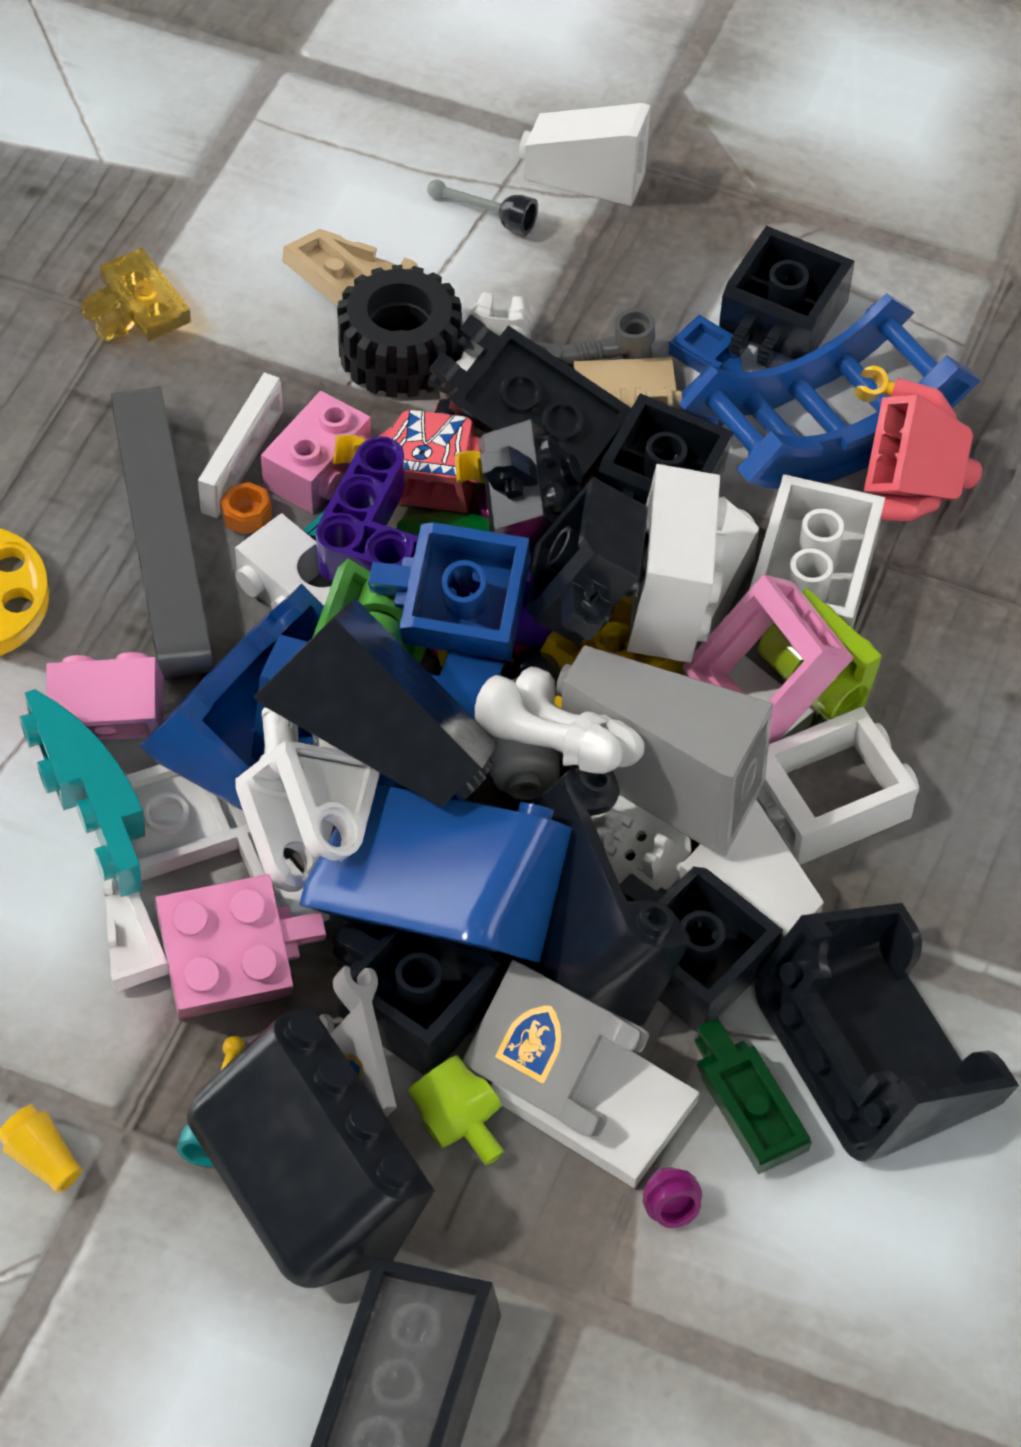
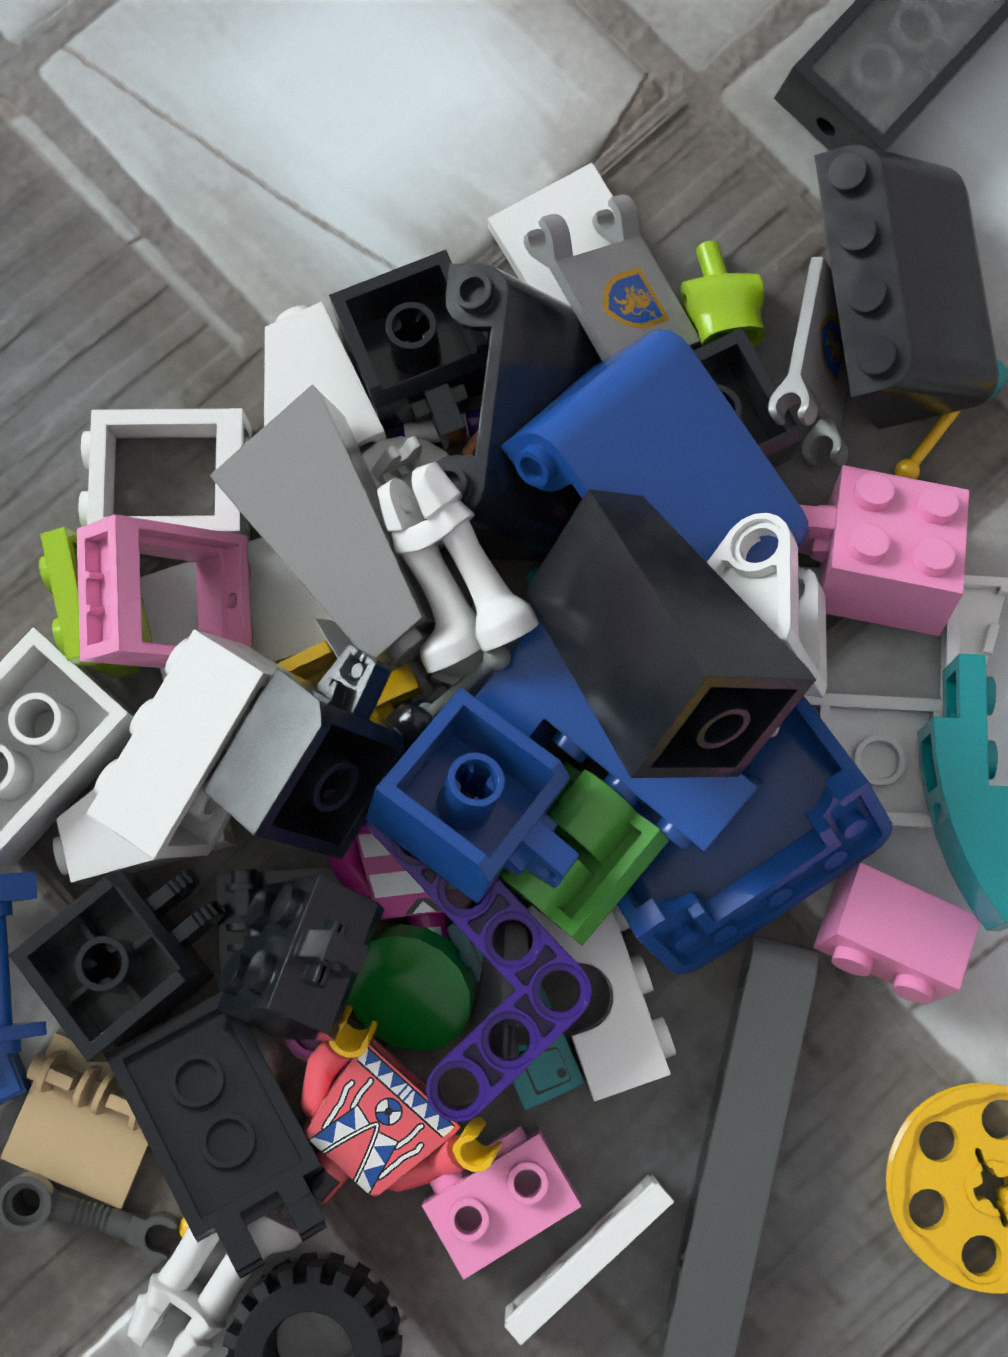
camera: 150 degrees left, 25 degrees up
(246, 508) = (619, 1158): orange tile -> none
(672, 1197) = (566, 147): magenta plate -> none
(749, 1099) = (444, 185): dark green hinge -> none
(867, 1037) = (295, 177): black windscreen -> none

